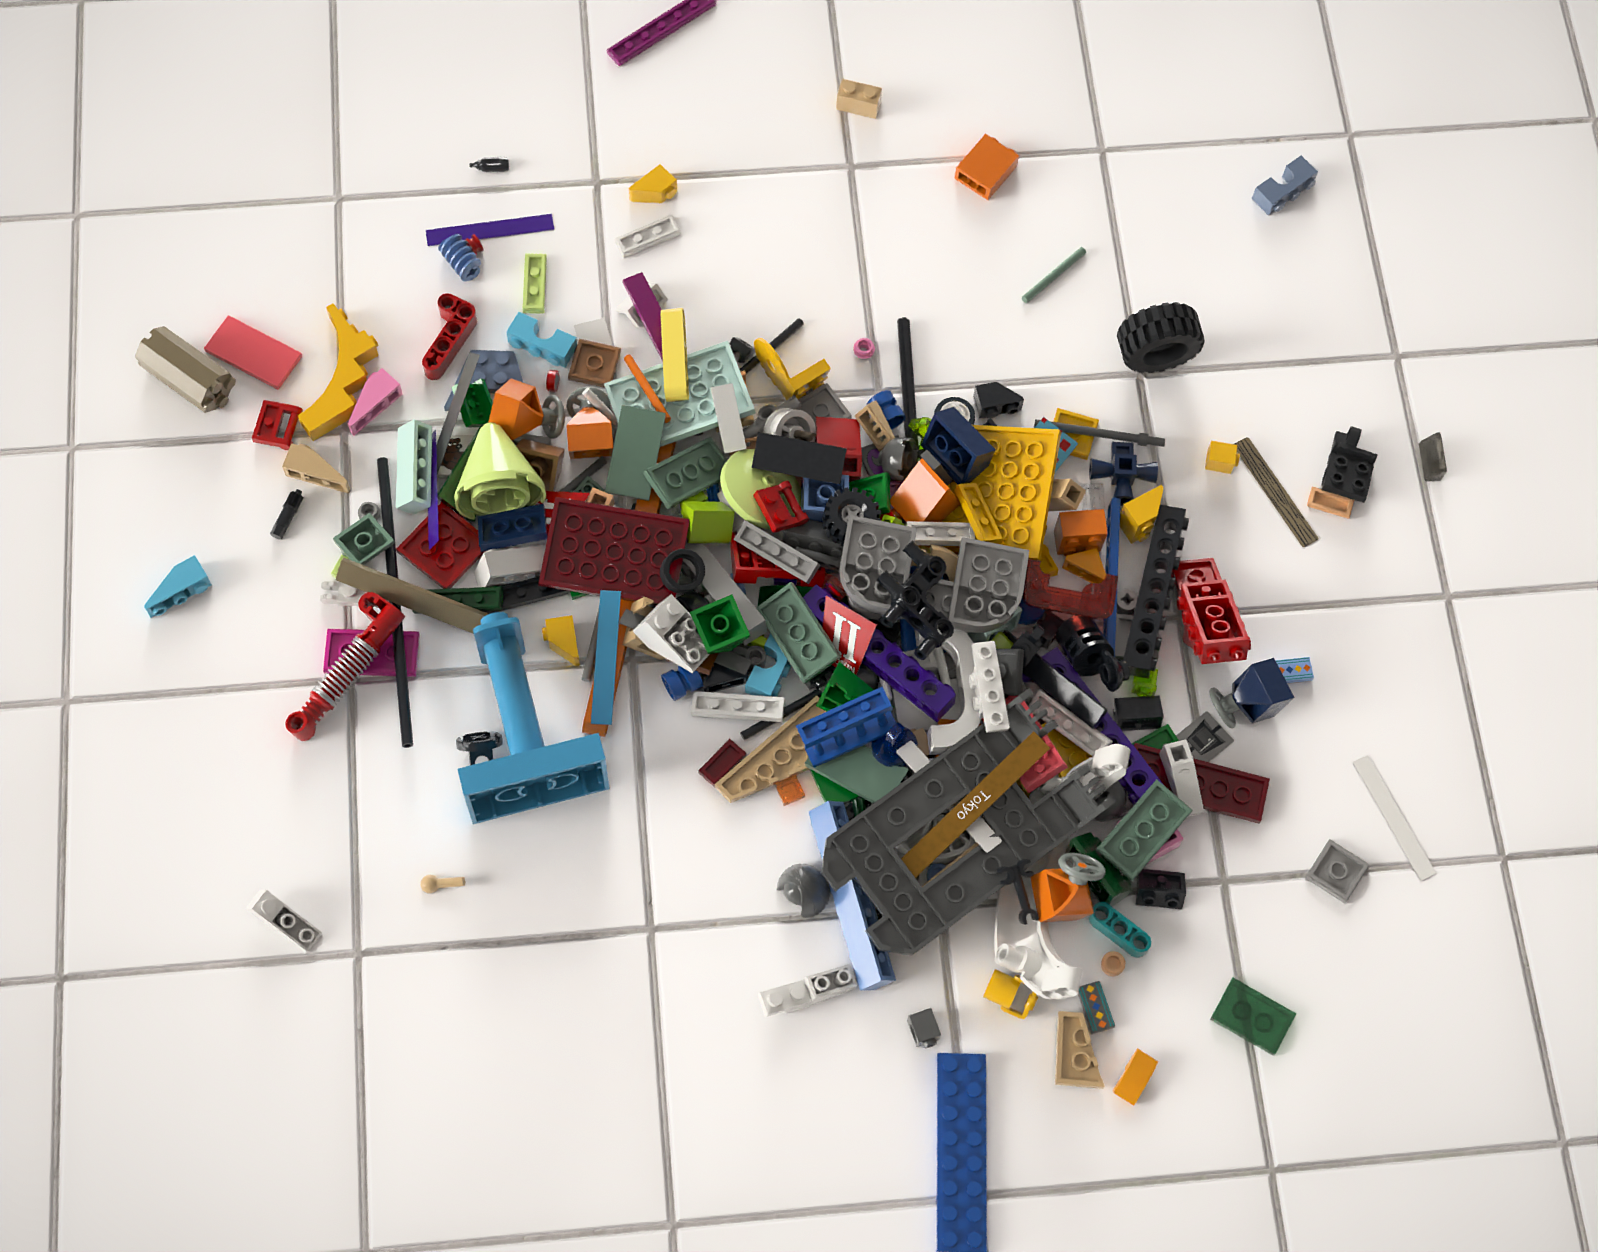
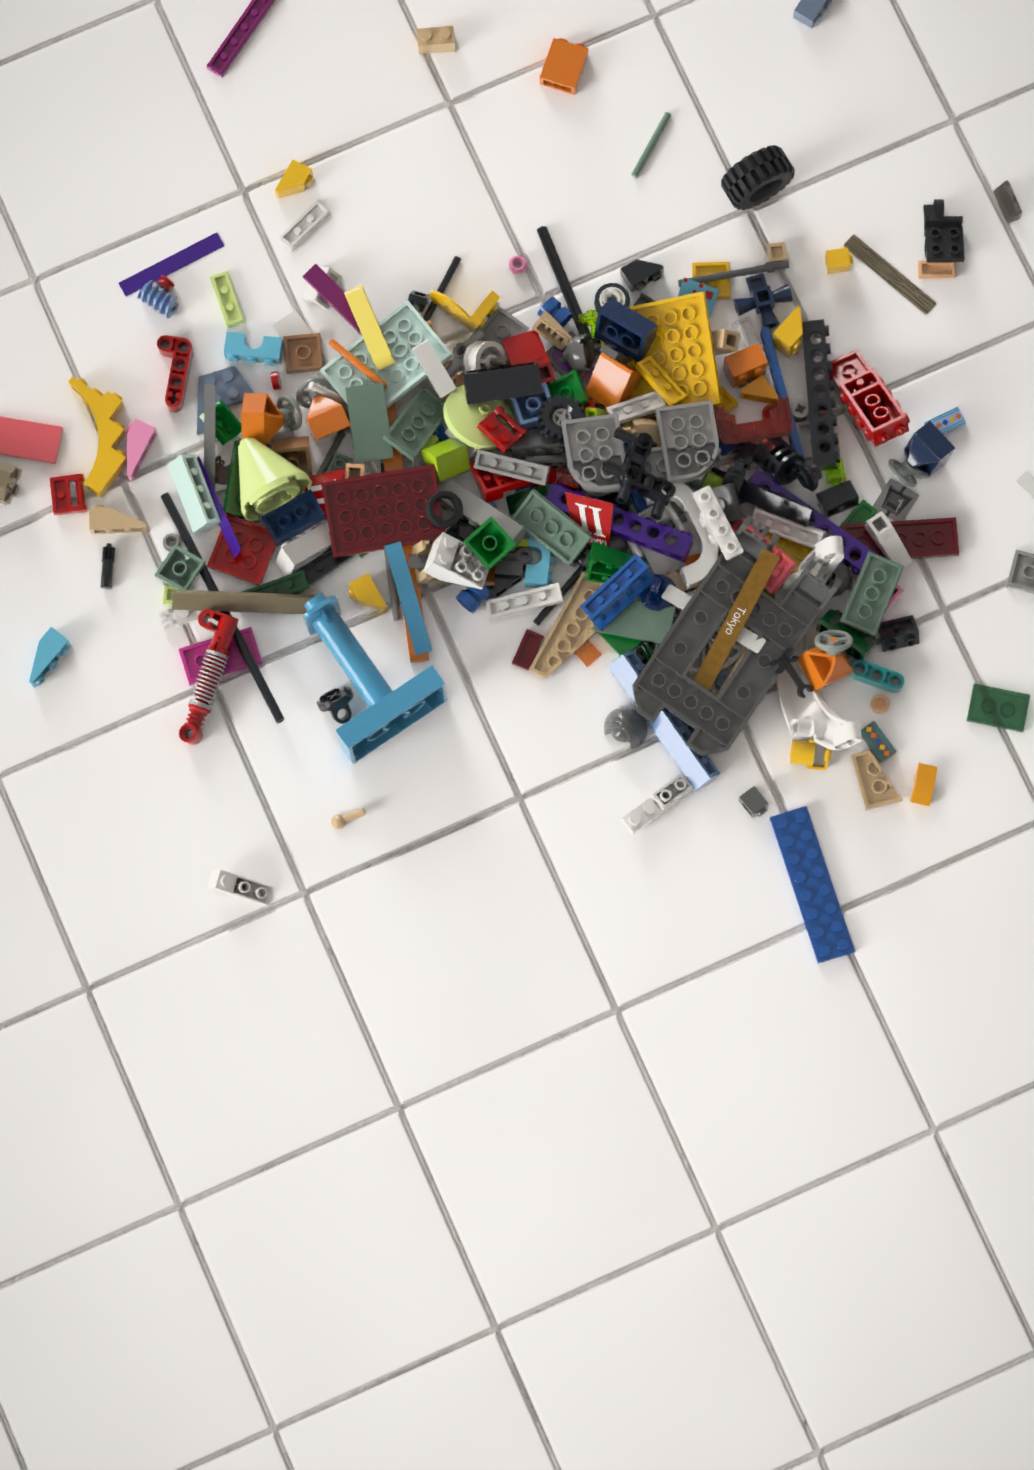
camera: 10 degrees left, 10 degrees up
(491, 164) = (150, 205): black piece -> none
(1155, 426) = (776, 252): none -> tan plate

